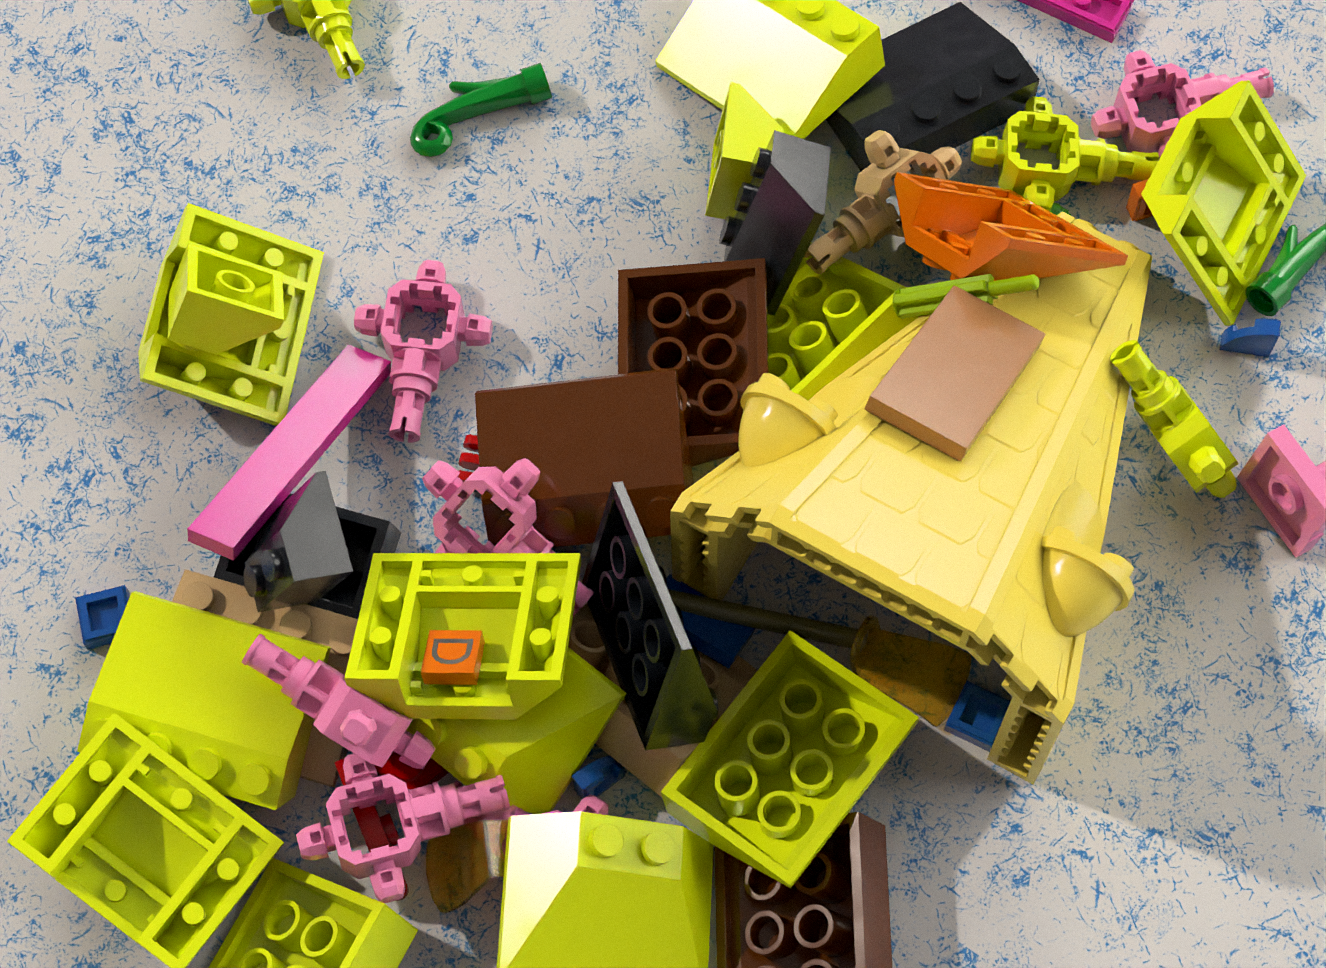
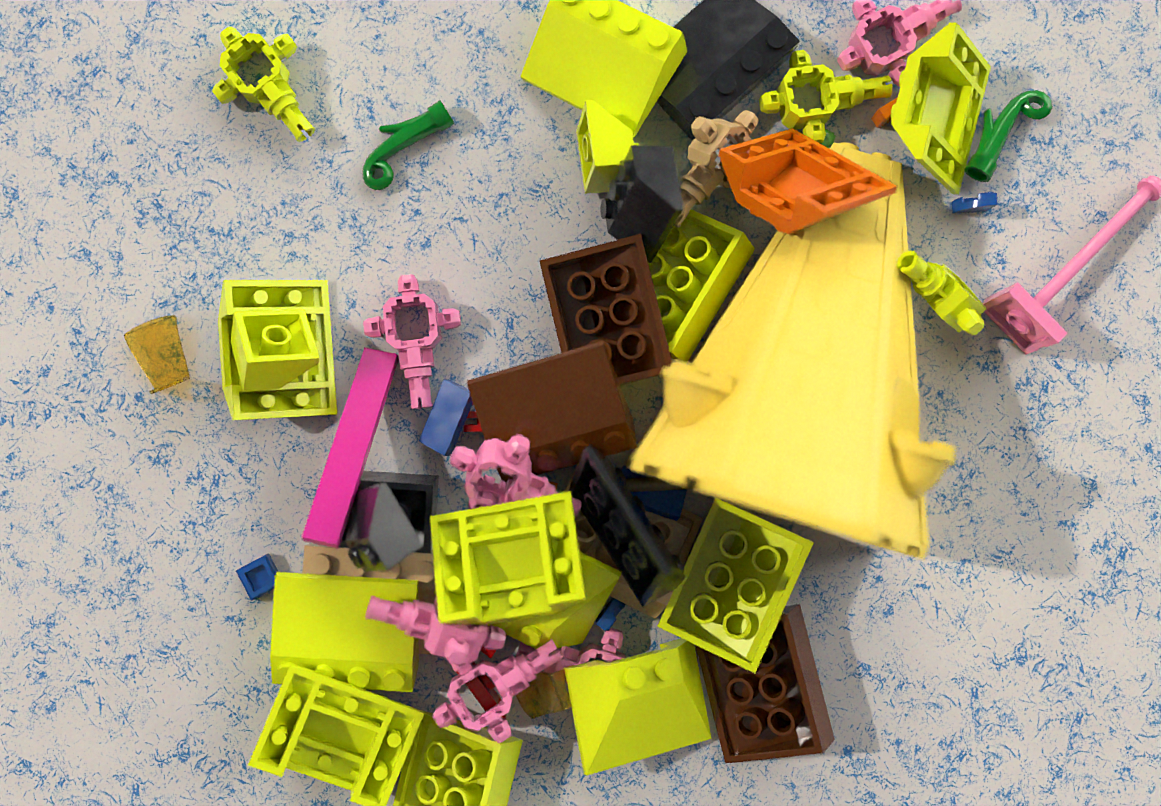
camera: 20 degrees left, 20 degrees up
(68, 295) = (159, 352): none -> clear yellow piece
(445, 439) = (447, 418): none -> blue tile
(453, 657) = (504, 582): orange tile -> none
(925, 298) = (786, 244): lime axle -> none
(955, 373) = (804, 320): tile -> none

